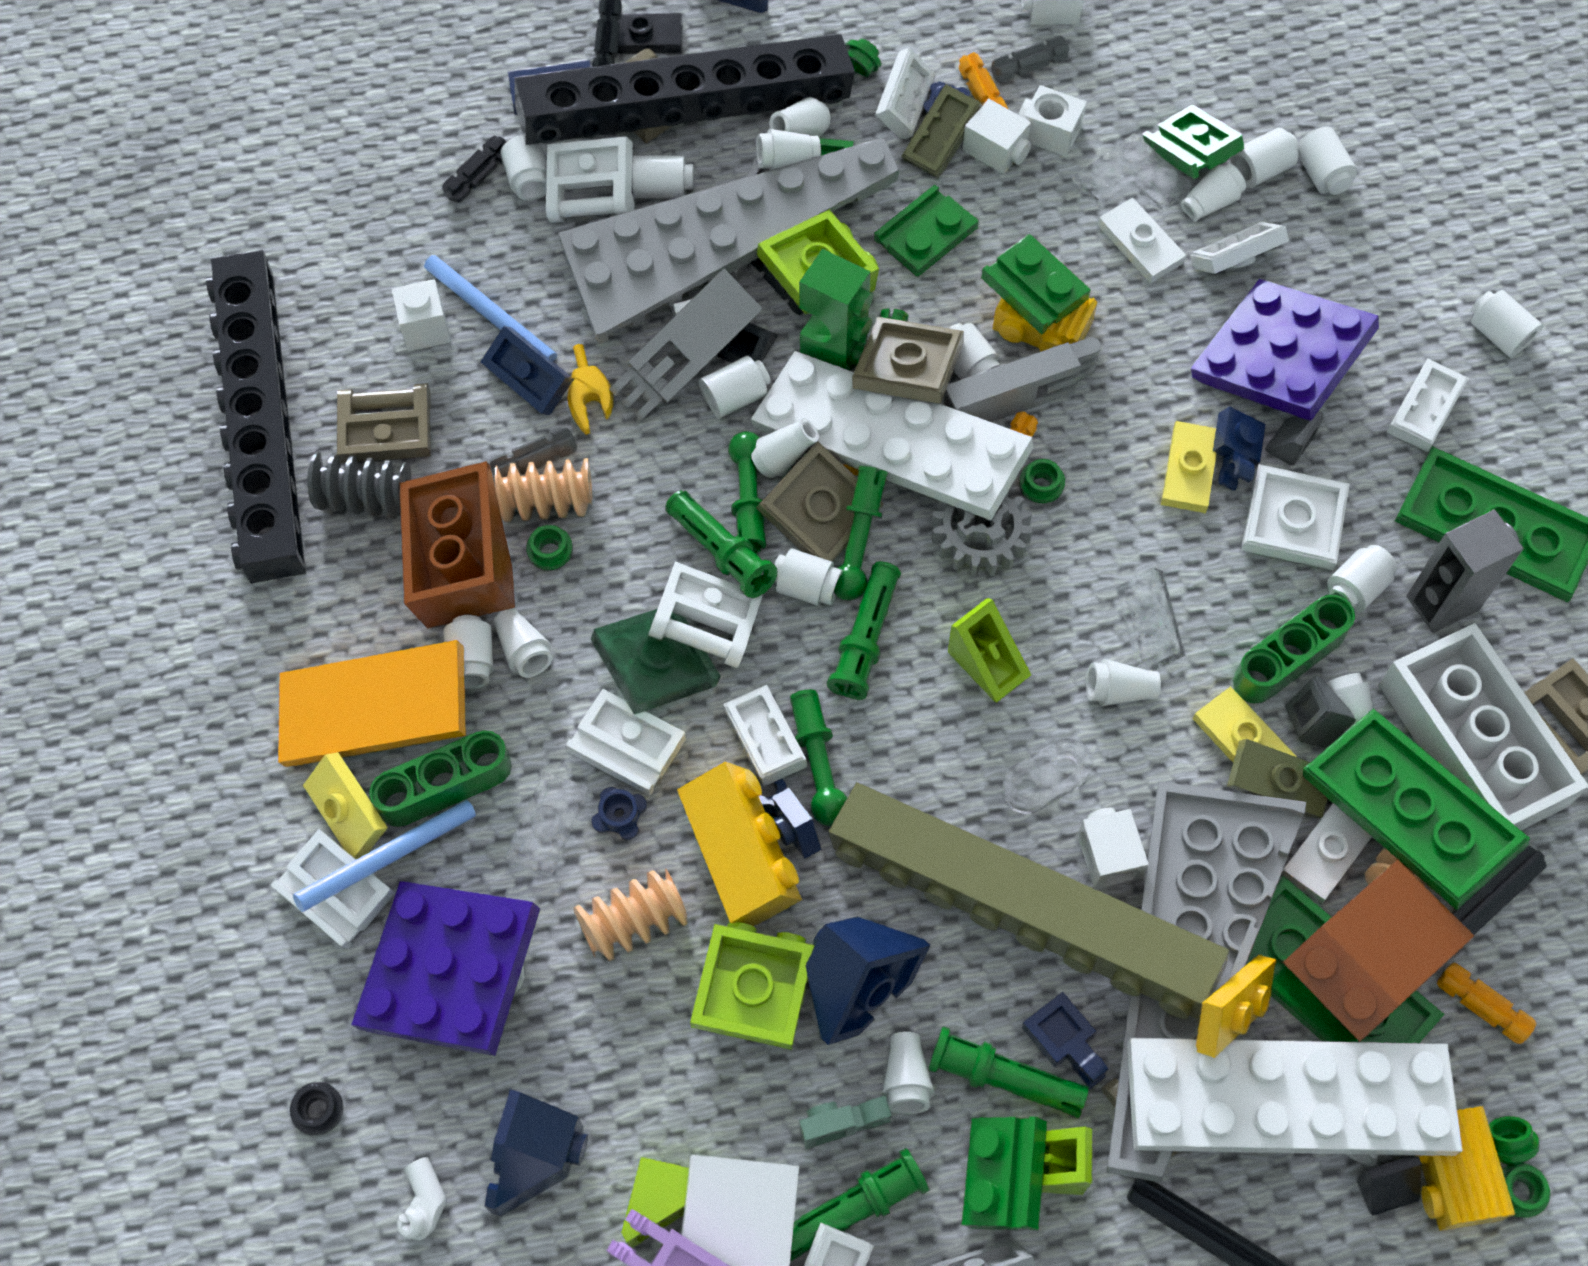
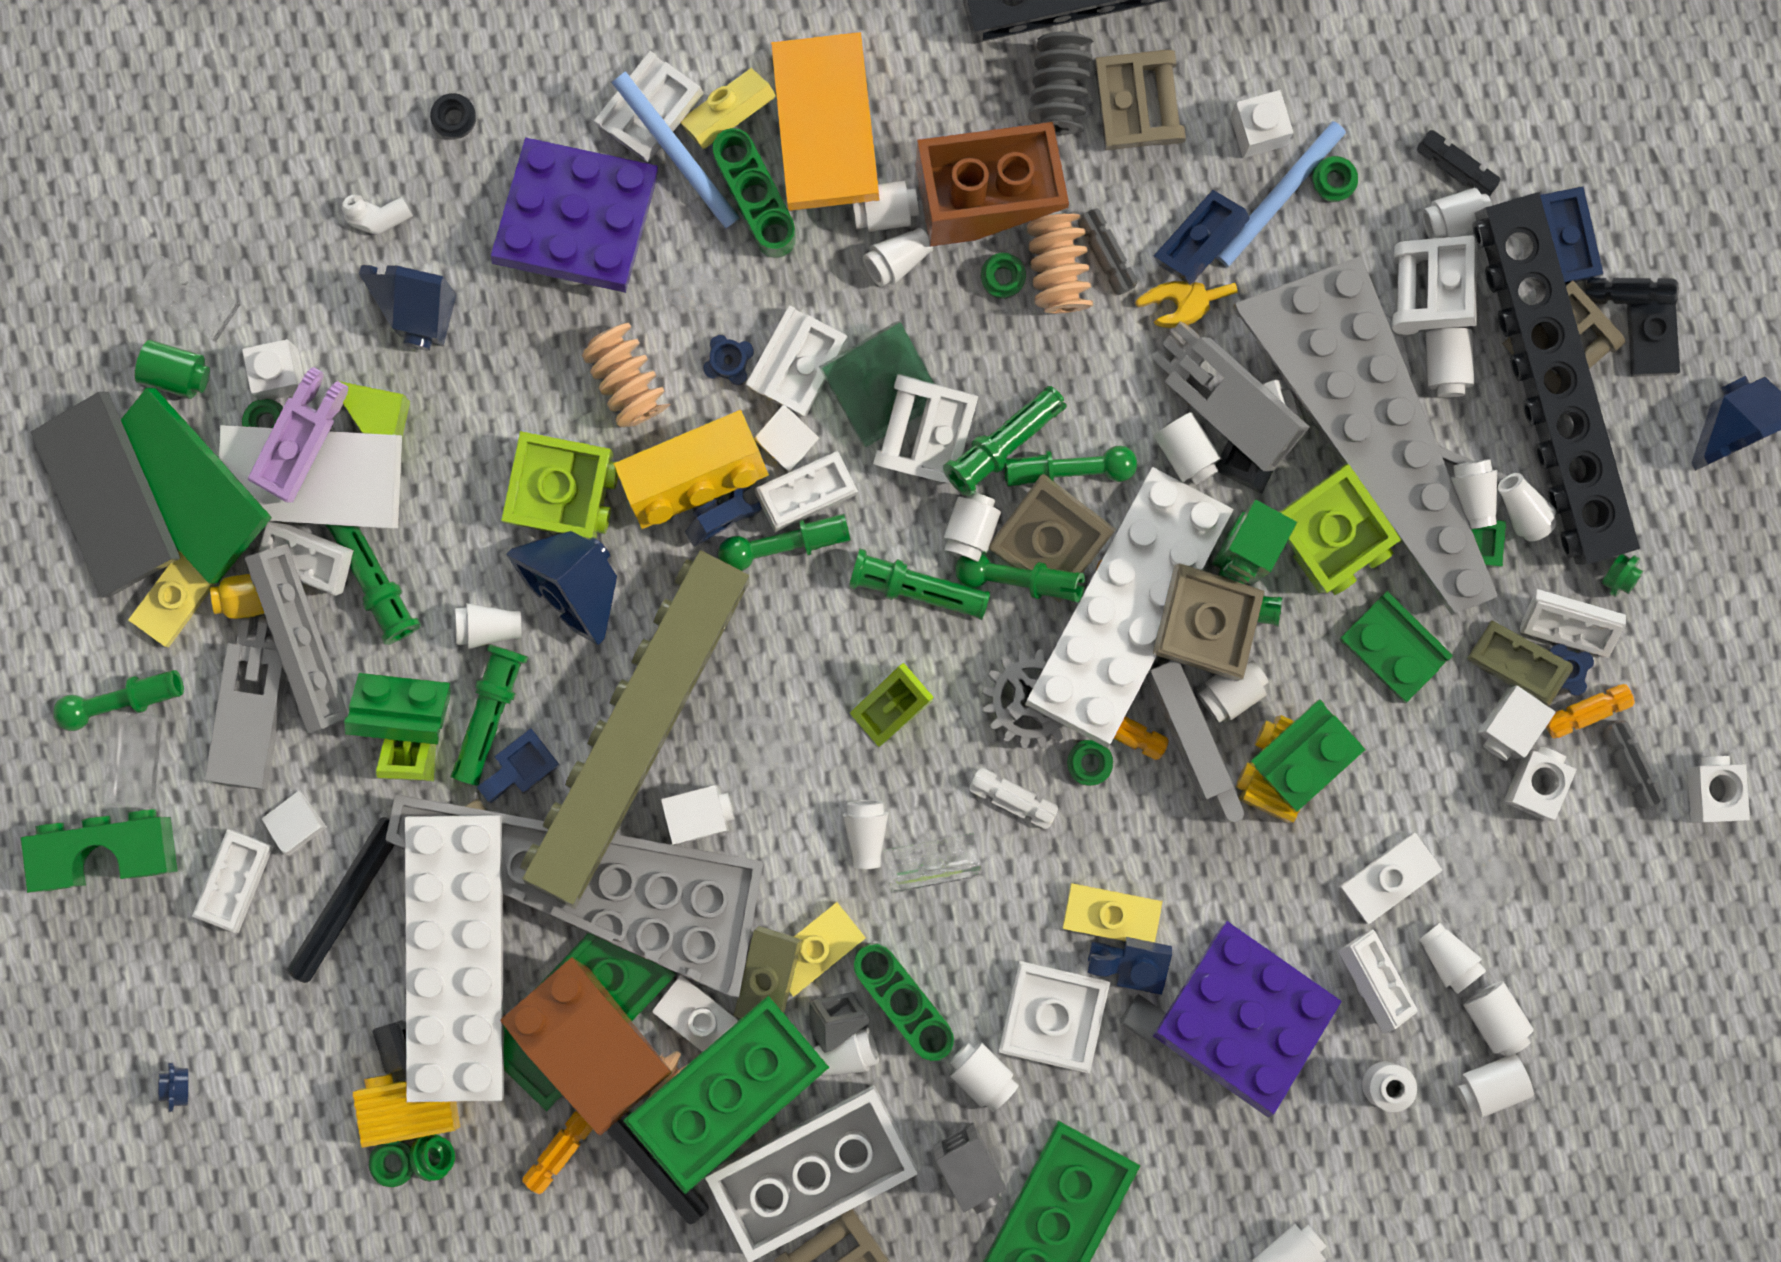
camera: 85 degrees right, 20 degrees up
(475, 254) = (1345, 169): none -> green plate
(704, 752) = (786, 438): none -> white slope
(782, 449) = (1111, 498): white cone -> none
(831, 1123) = (440, 558): sand green plate -> none
(1080, 549) = (1013, 798): none -> white axle
(1194, 141) = (1513, 939): plate -> none
(1235, 1006) = (527, 908): yellow plate -> none
(1337, 237) = (1375, 1084): none -> white brick
(1427, 405) = (1189, 1166): white plate -> none

